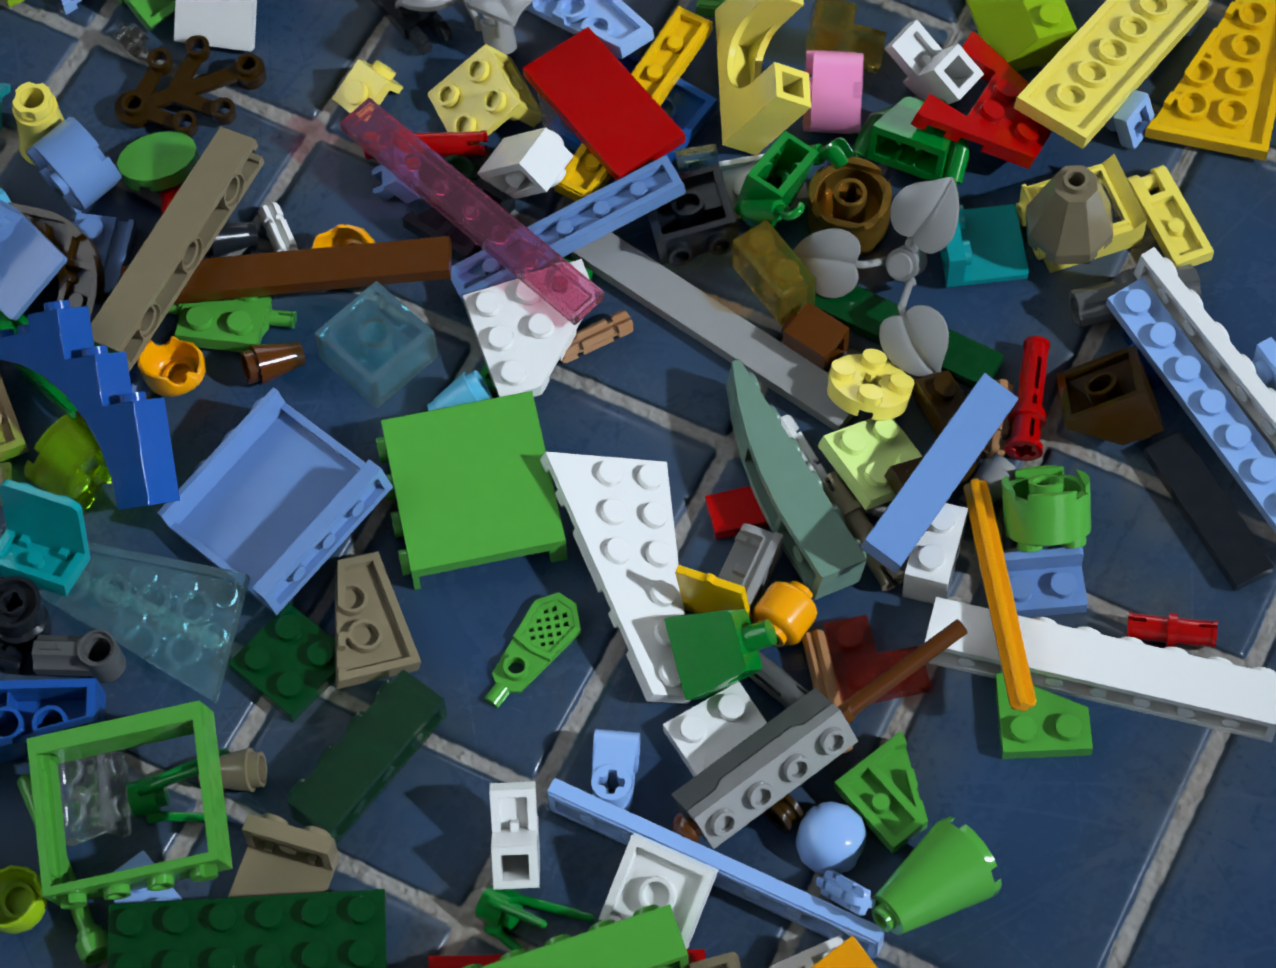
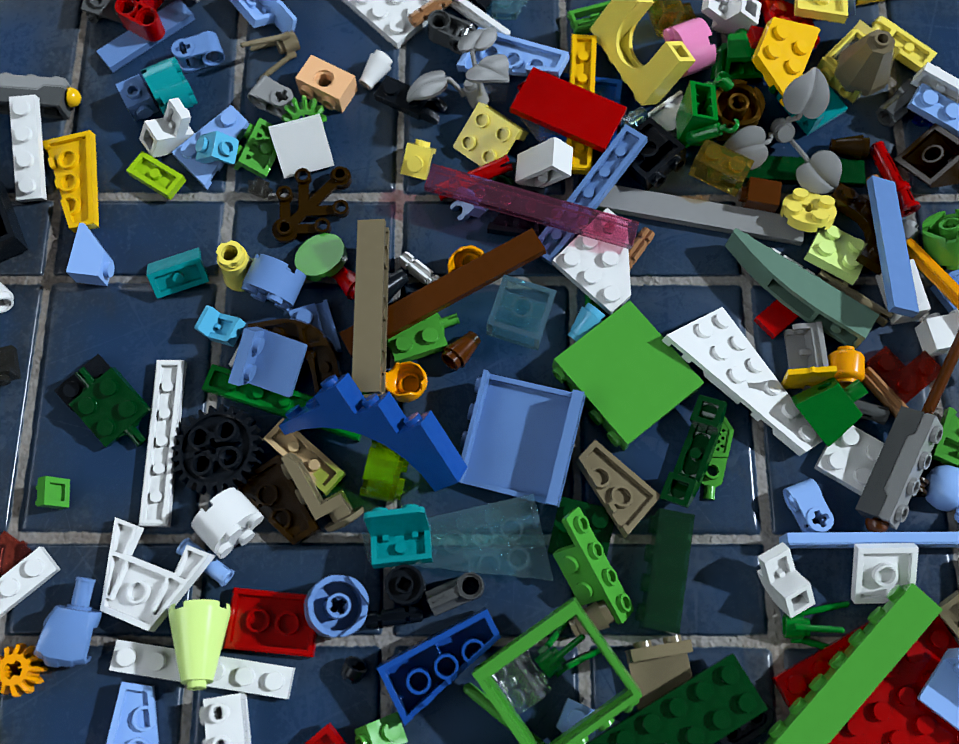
camera: 30 degrees left, 10 degrees up
(265, 701) = (589, 569): none -> bright green bracket
(506, 632) = (696, 452): none -> dark green slope
(955, 142) = (784, 51): none -> yellow wing
(996, 329) = (851, 147): none -> dark brown cone

